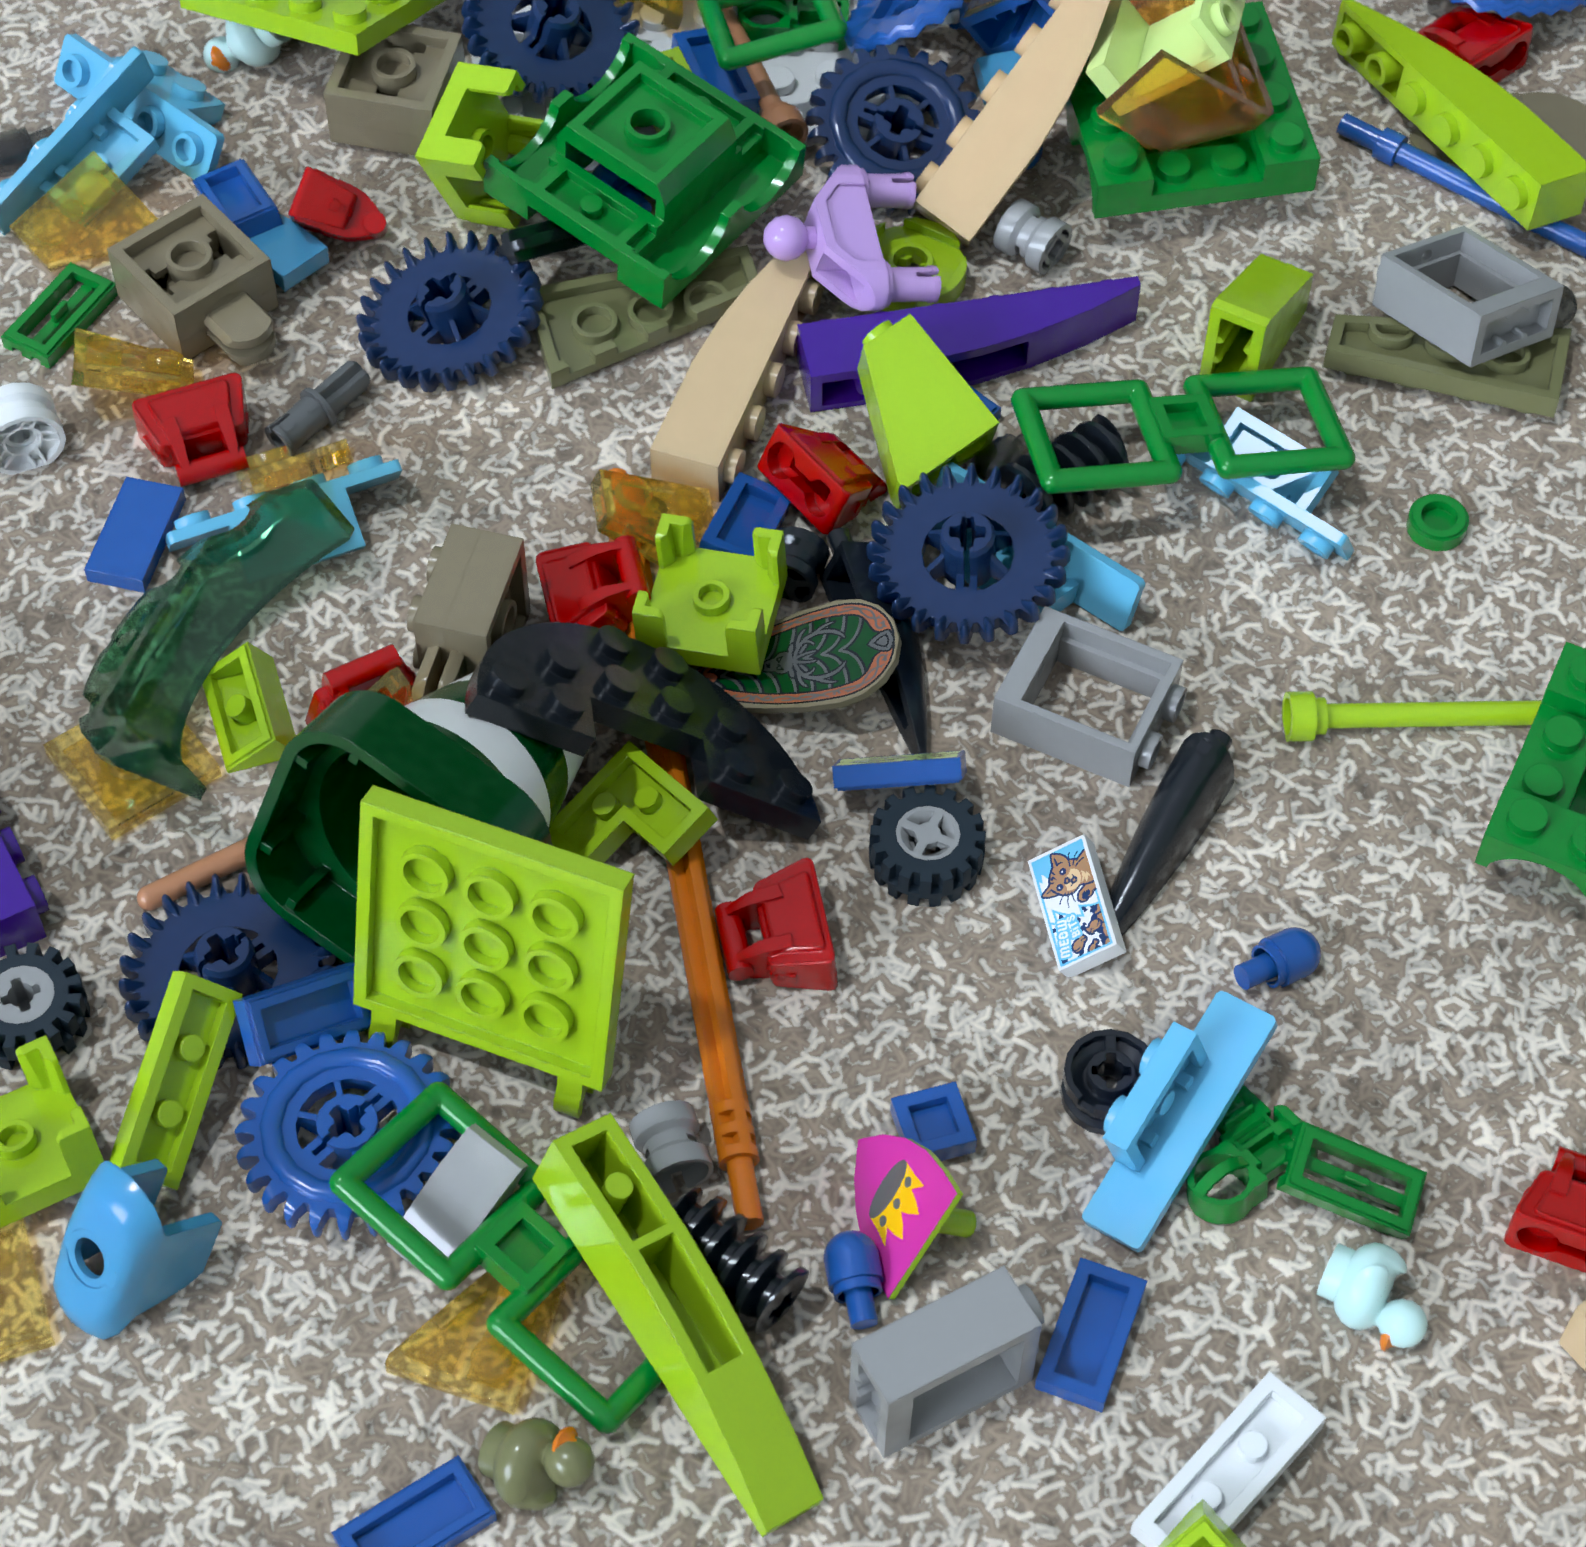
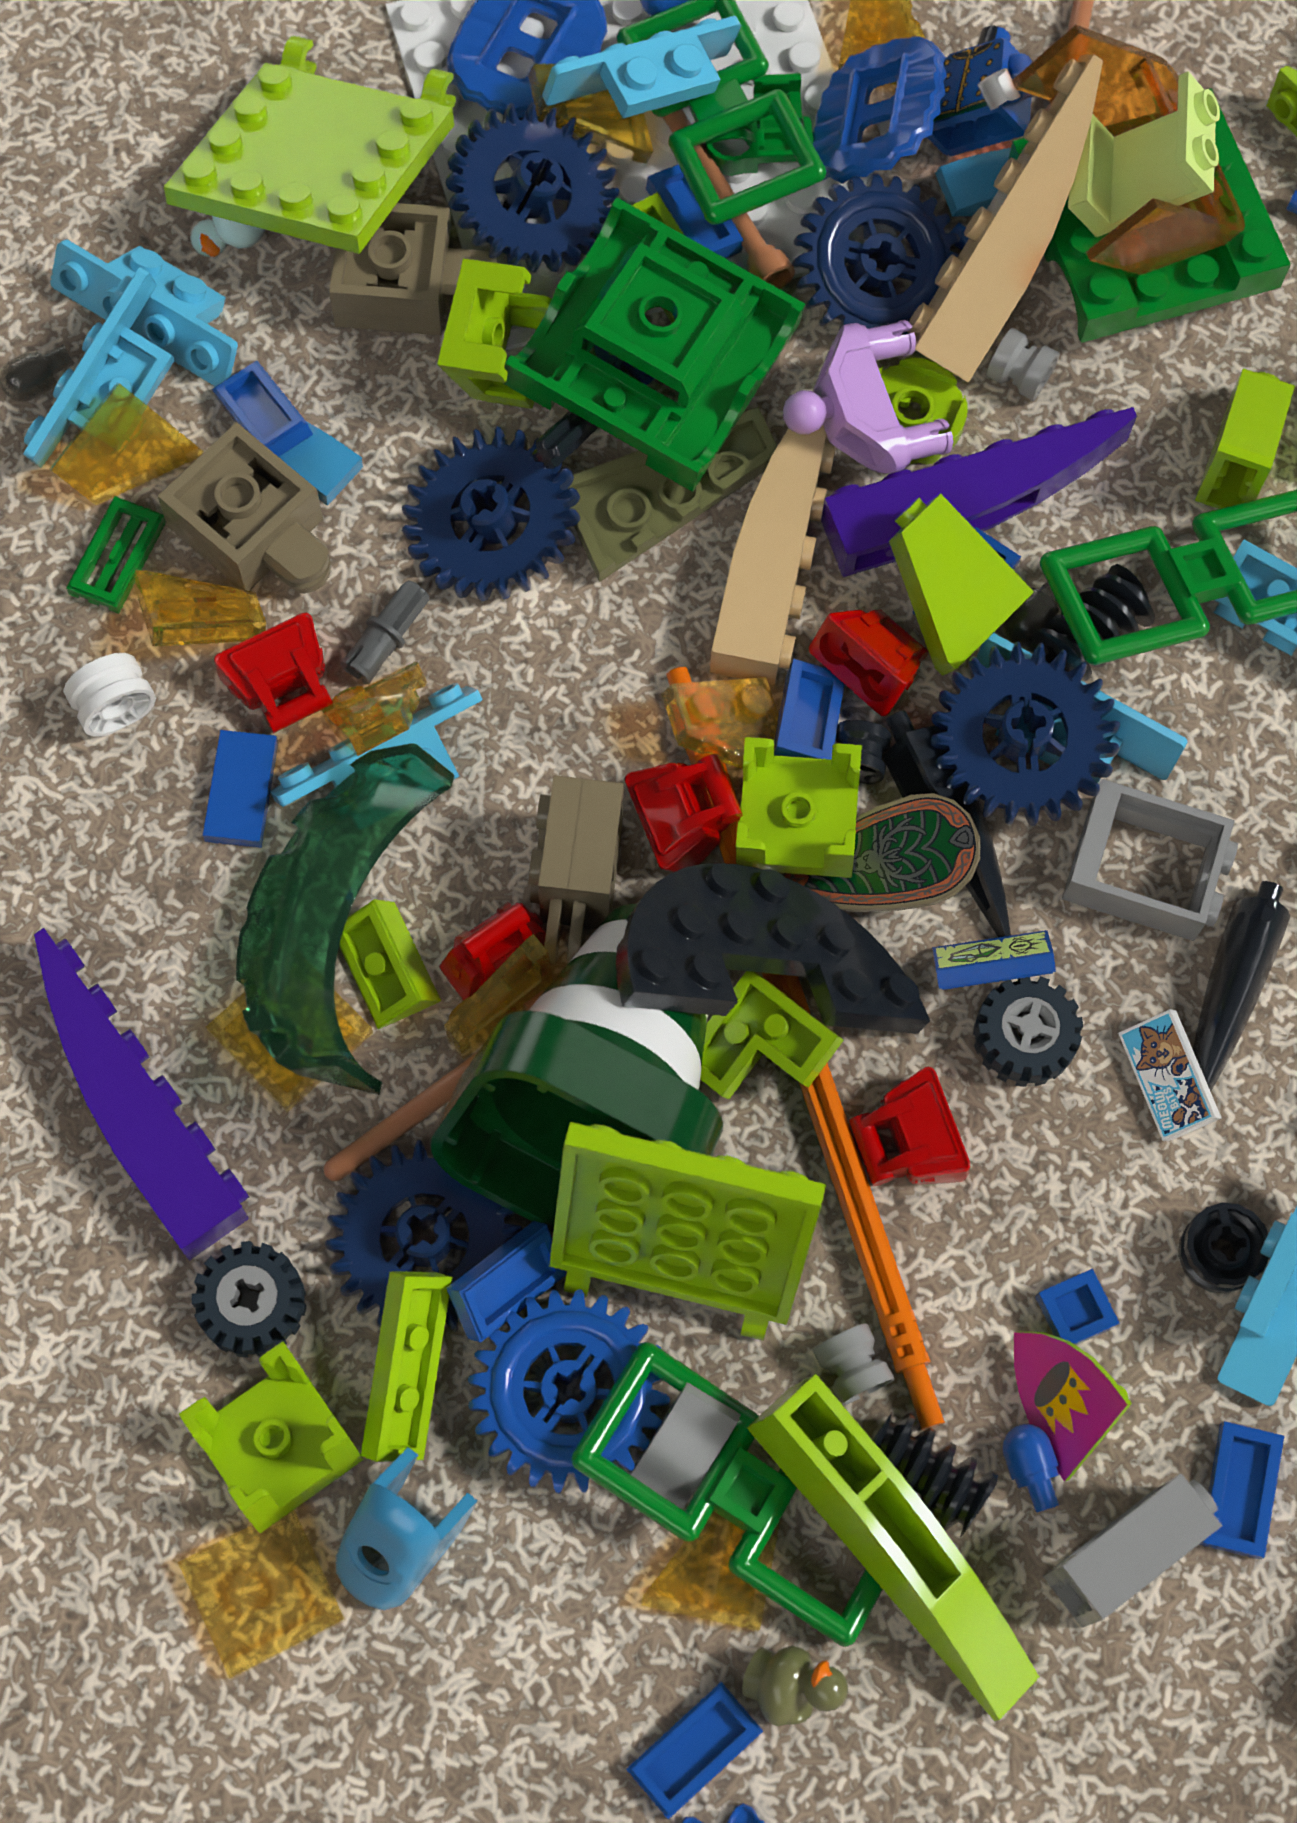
camera: 10 degrees left, 15 degrees up
(335, 209) = (361, 415): red piece -> none

